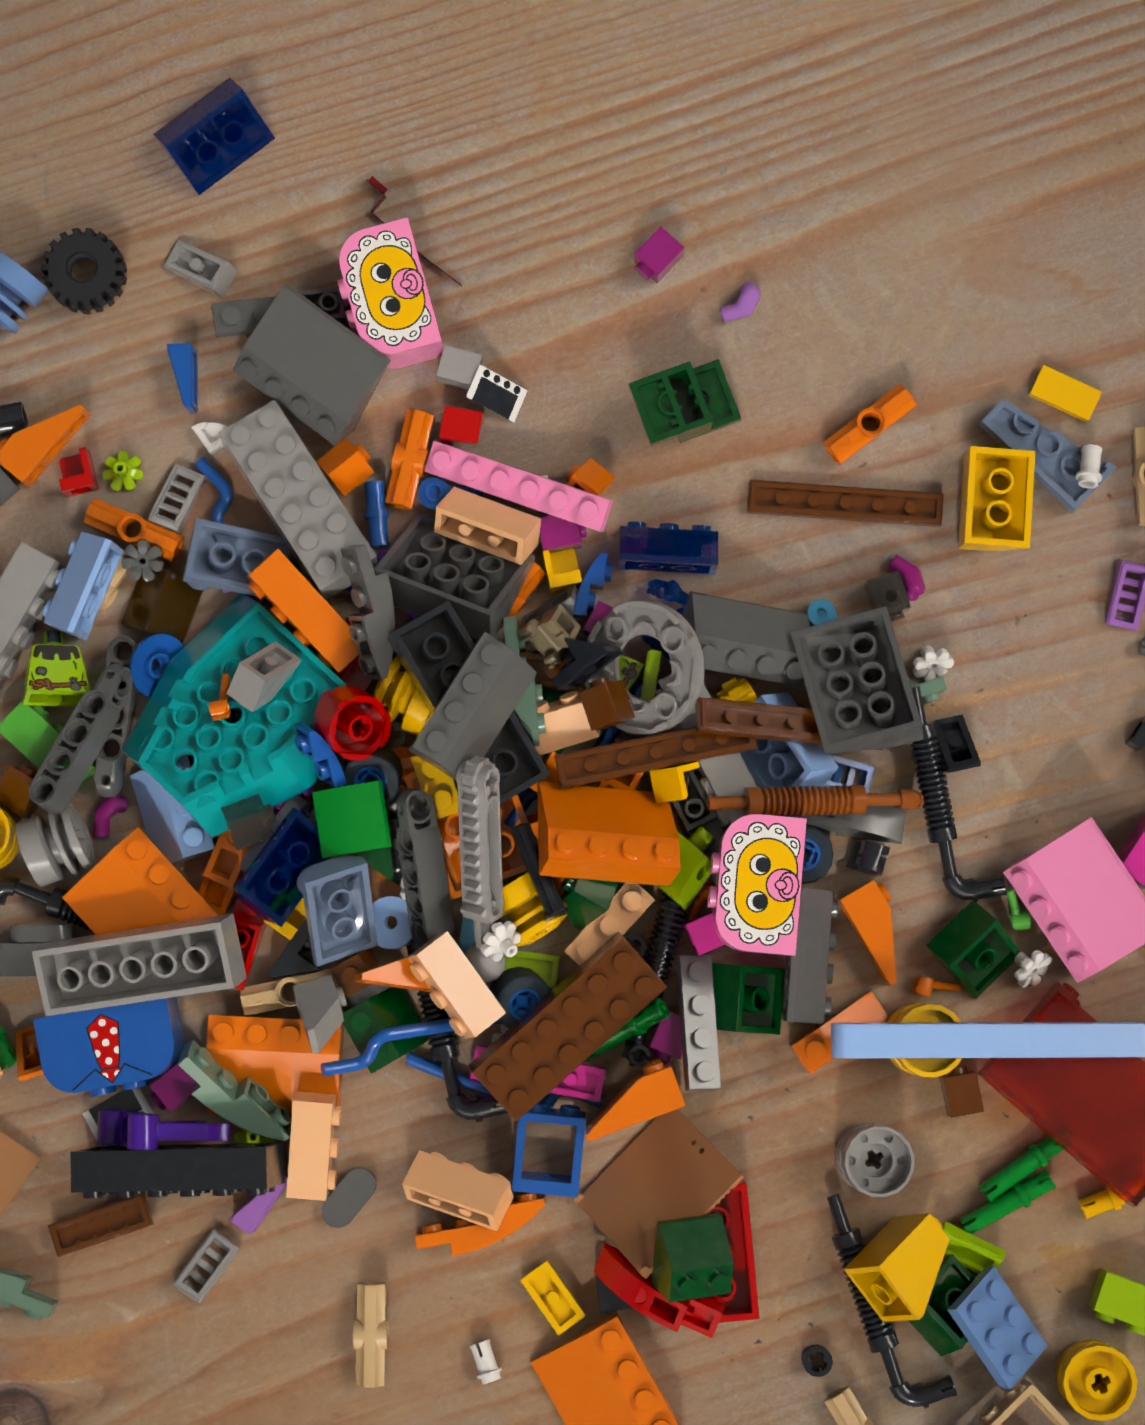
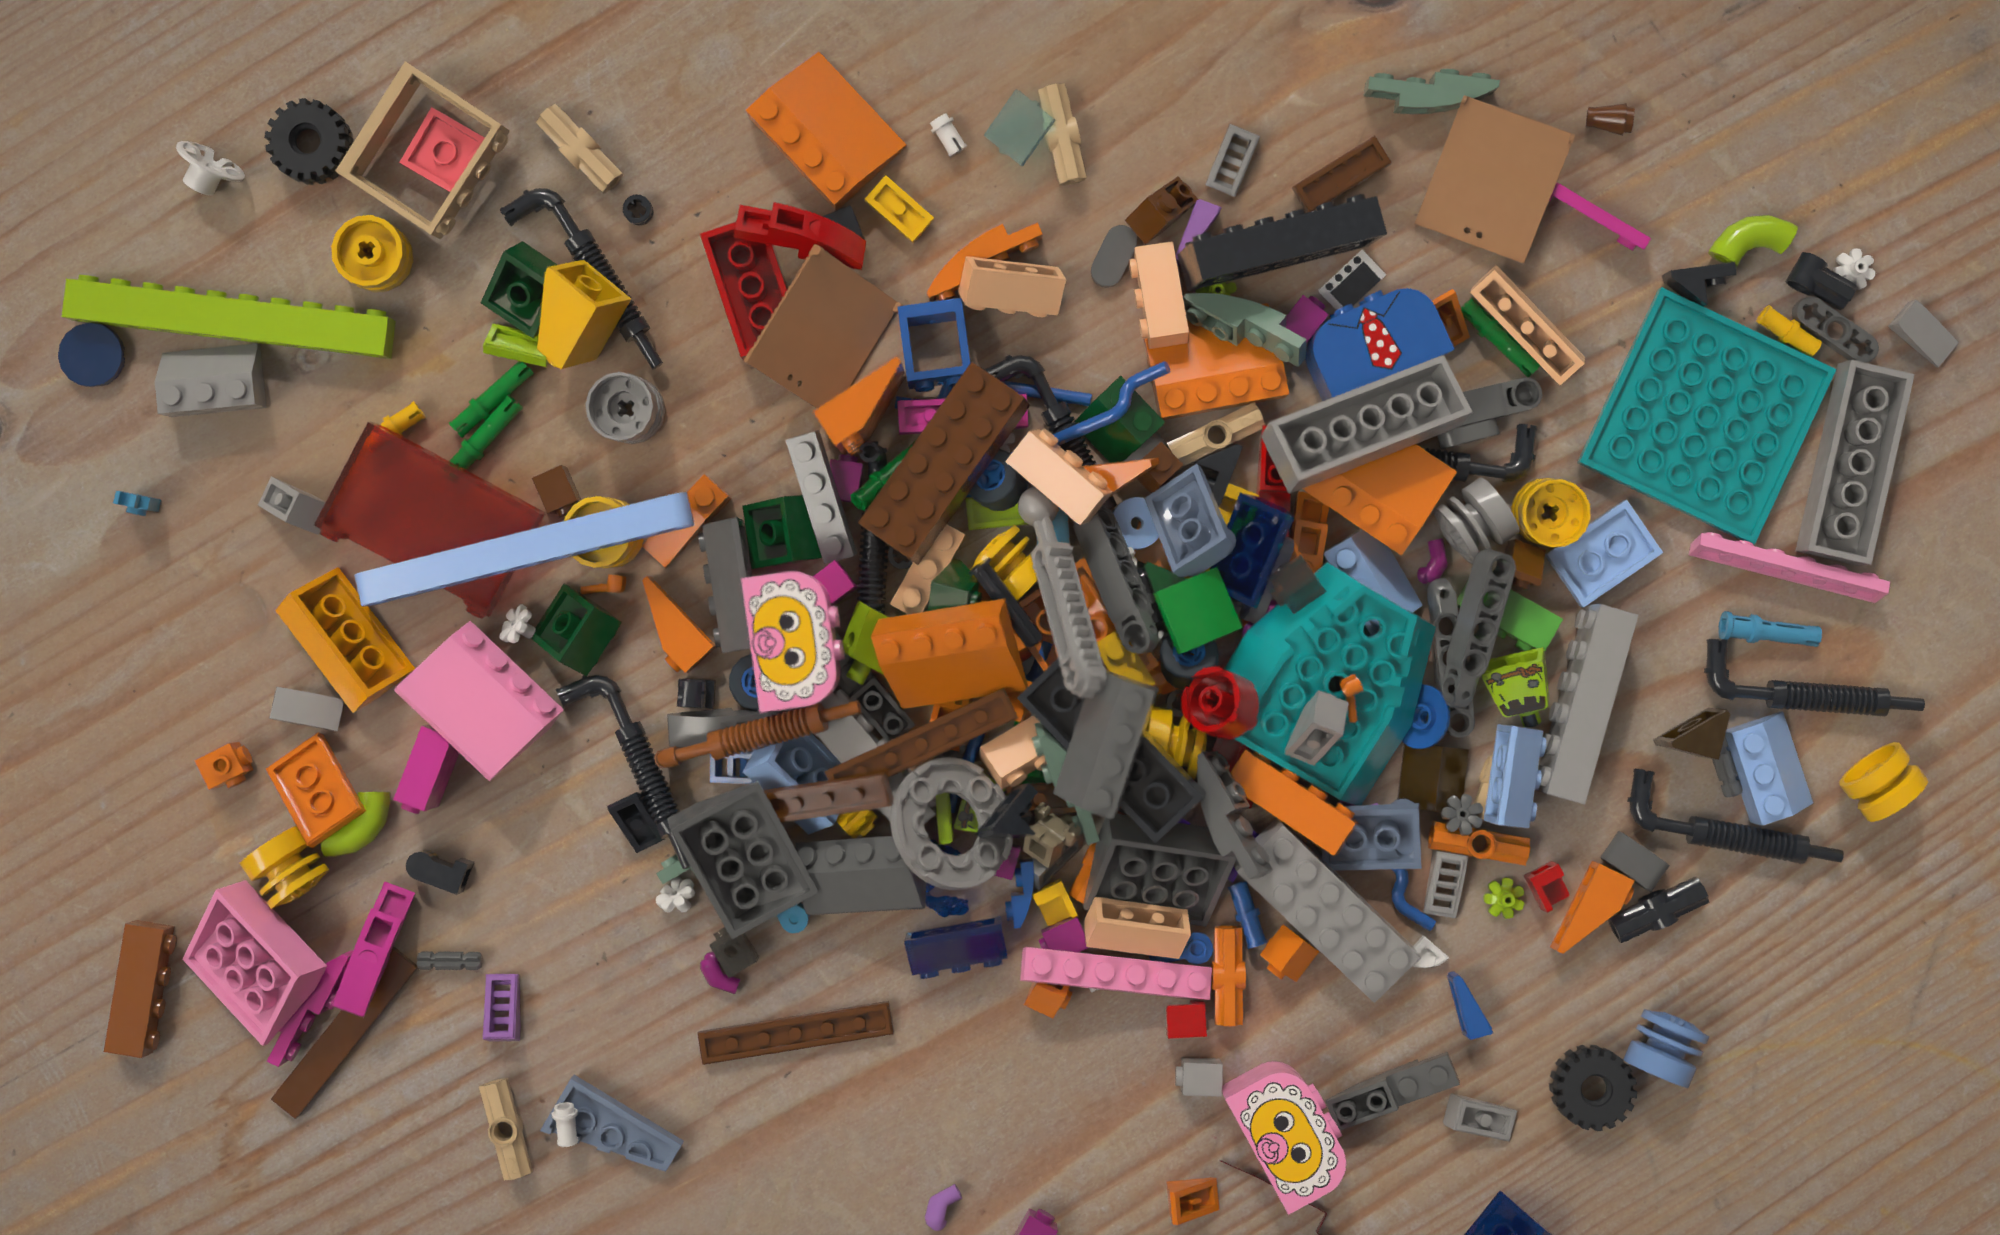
camera: 165 degrees right, 5 degrees up
(144, 1130) = (1322, 270): dark purple piece -> none
(289, 1232) = (1161, 210): none -> reddish brown slope
(311, 365) = (1346, 1045): dark grey slope -> none
(317, 749) = (1244, 667): blue slope -> none
(319, 1009) = (1184, 423): light grey slope -> none
(411, 1351) = (1019, 127): none -> clear light blue piece
(496, 393) = (1159, 1060): black sticker -> none
(497, 255) = (1192, 1199): none -> orange slope
(500, 941) = (1026, 528): white plant -> none
(606, 704) = (979, 779): reddish brown brick -> none
(670, 782) = (900, 717): yellow panel -> none
(684, 402) = (974, 1094): dark green bracket -> none
(692, 1258) = (774, 272): dark green slope -> none
(700, 898) = (847, 614): orange hand -> none
(884, 411) = (776, 1130): orange piece -> none
(996, 499) = (649, 1070): yellow slope -> none
(997, 1328) = (474, 279): medium blue plate -> none
(1019, 918) = (538, 669): bright green hand -> none
(1065, 393) = (606, 1191): yellow tile -> none

